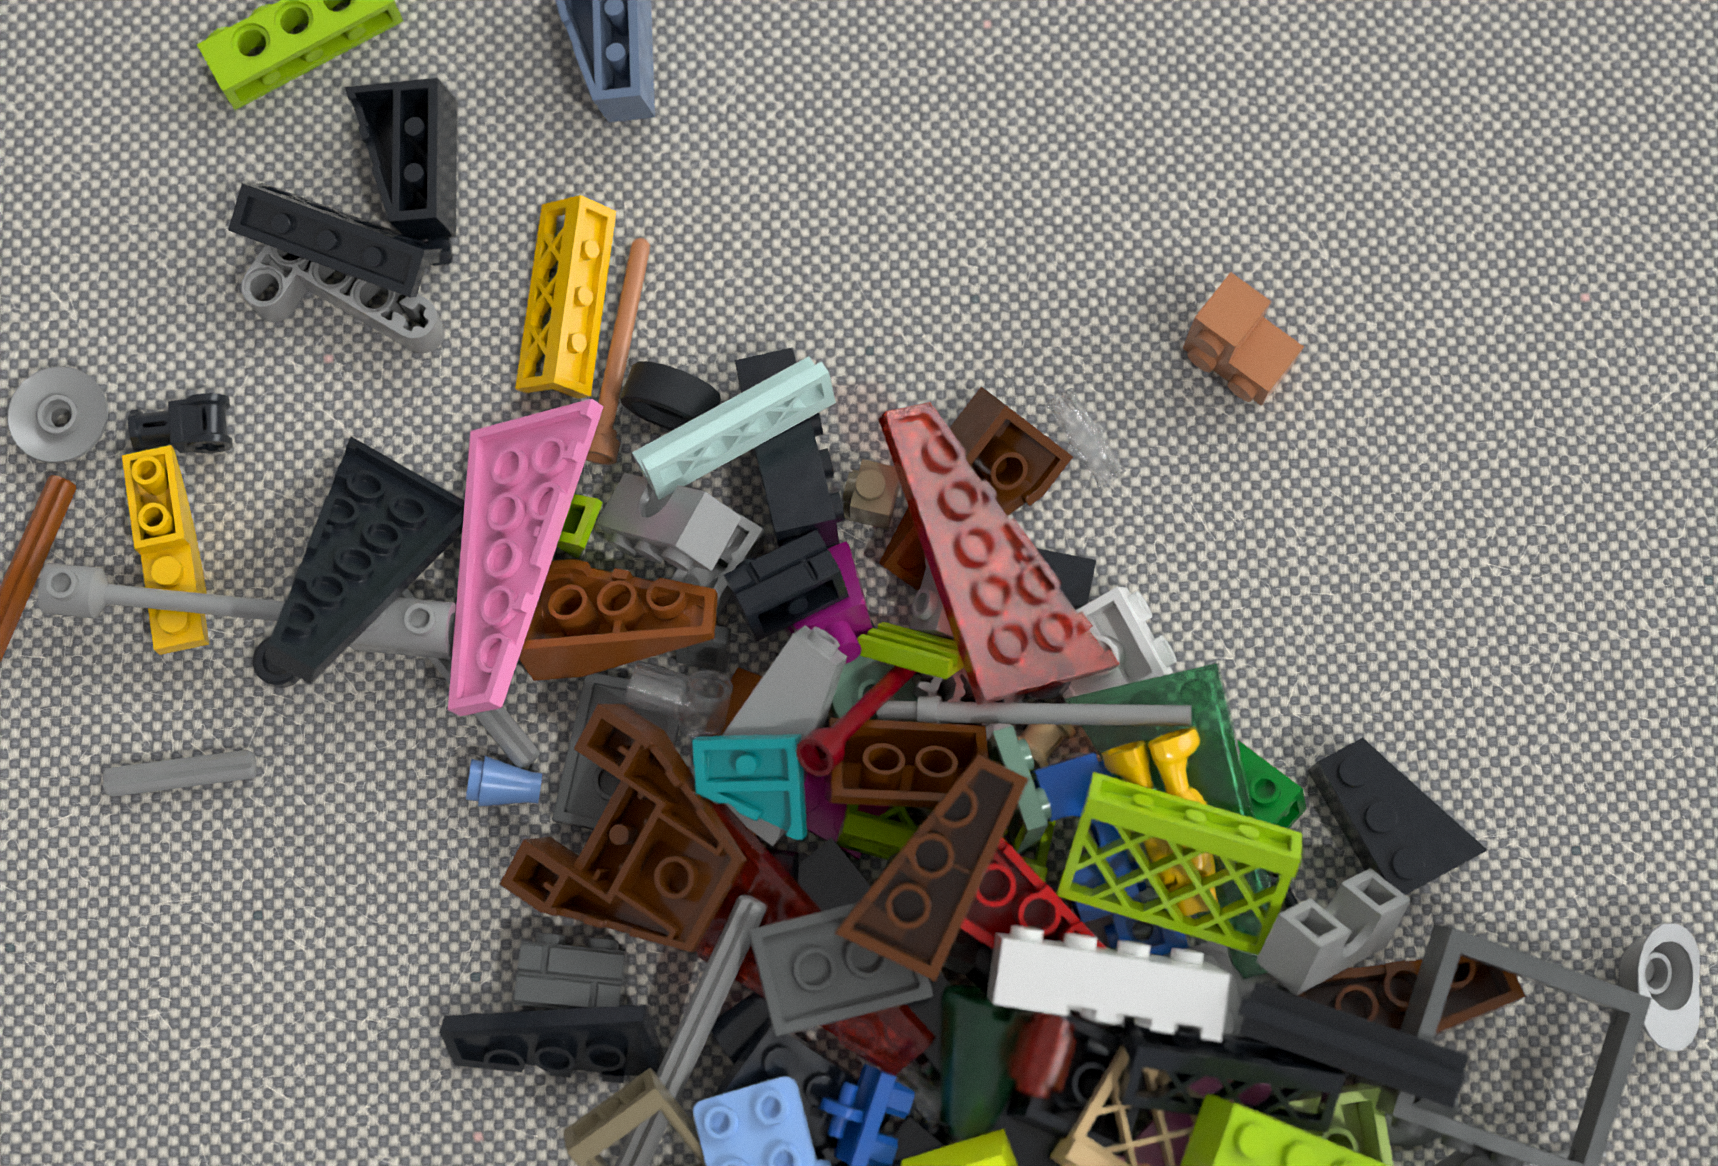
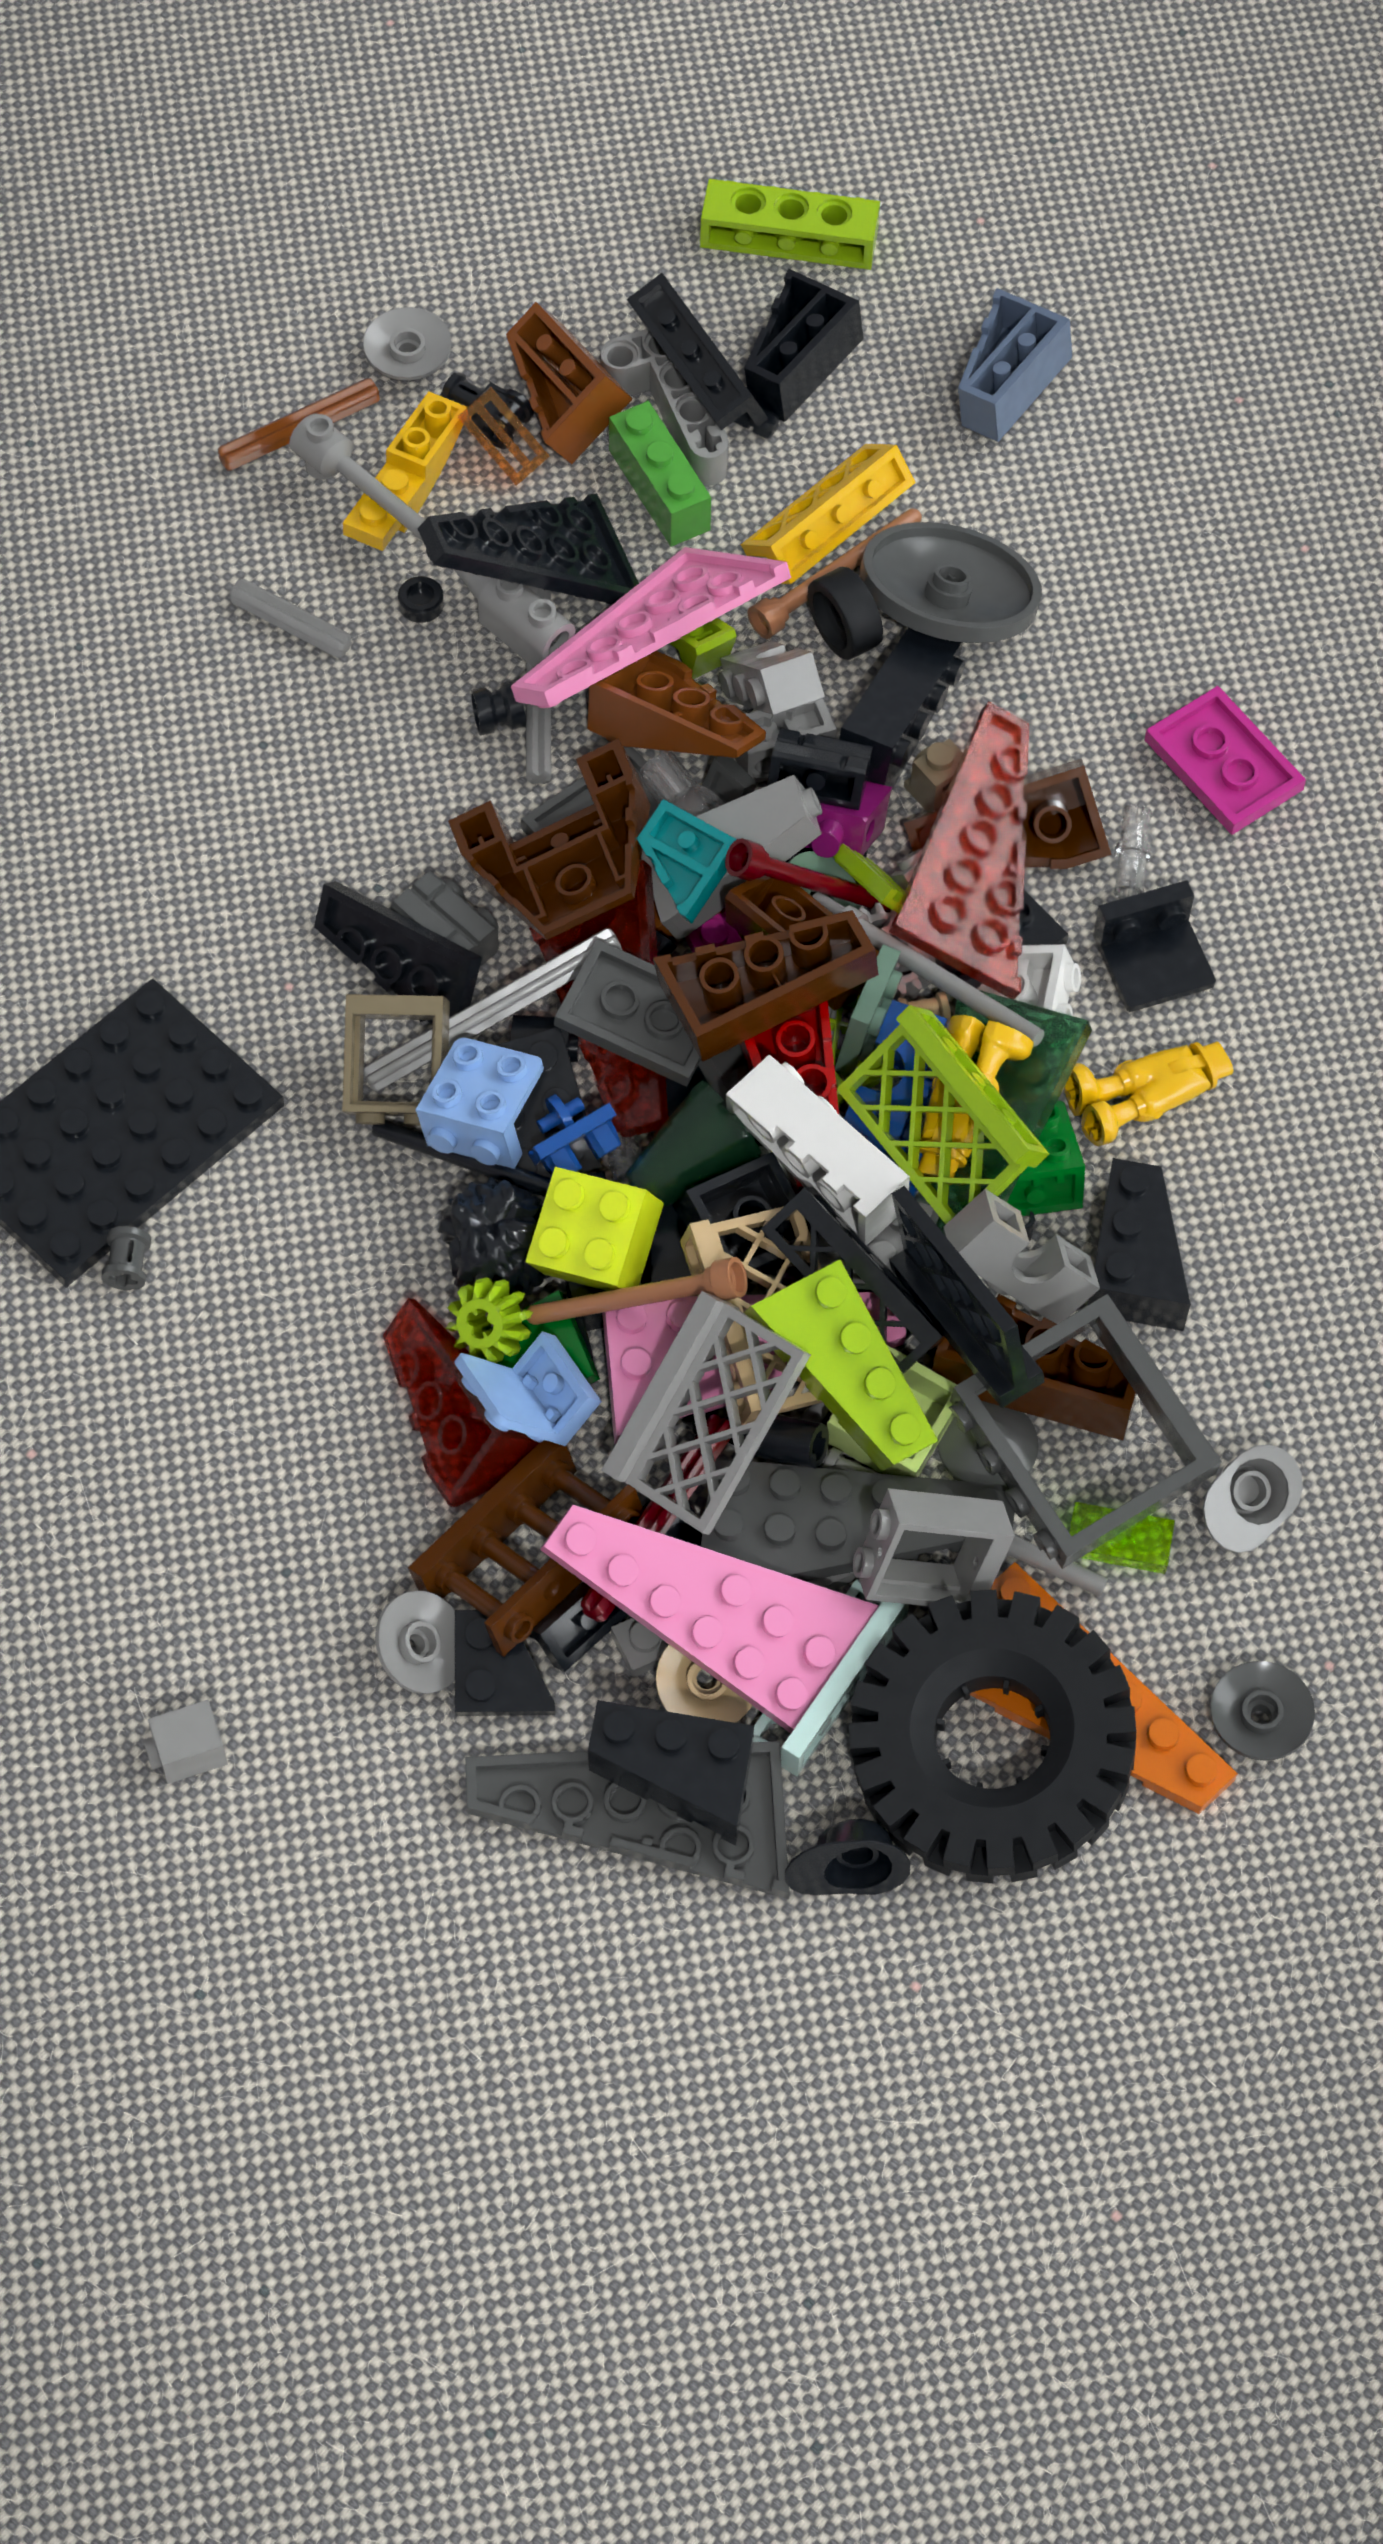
camera: 35 degrees right, 15 degrees down
(184, 442) = (478, 406): none -> clear orange tile
(236, 348) = (565, 383): none -> dark orange wedge
(391, 376) = (659, 473): none -> bright green brick
(439, 724) = (496, 709): none -> black wheel
(500, 783) = (504, 773): medium blue cone -> none
(735, 298) = (951, 582): none -> dark grey dish
(735, 426) = (876, 646): light aqua fence -> none
(1043, 1055) = (732, 1153): clear red brick -> none
(1090, 288) = (1225, 760): none -> dark pink plate
(1181, 523) = (1152, 947): none -> black bracket
(1241, 343) = (1304, 860): nougat brick -> none
(1281, 647) = (1152, 1082): none -> yellow piece
(1559, 1101) = (1138, 1547): none -> clear neon green plate

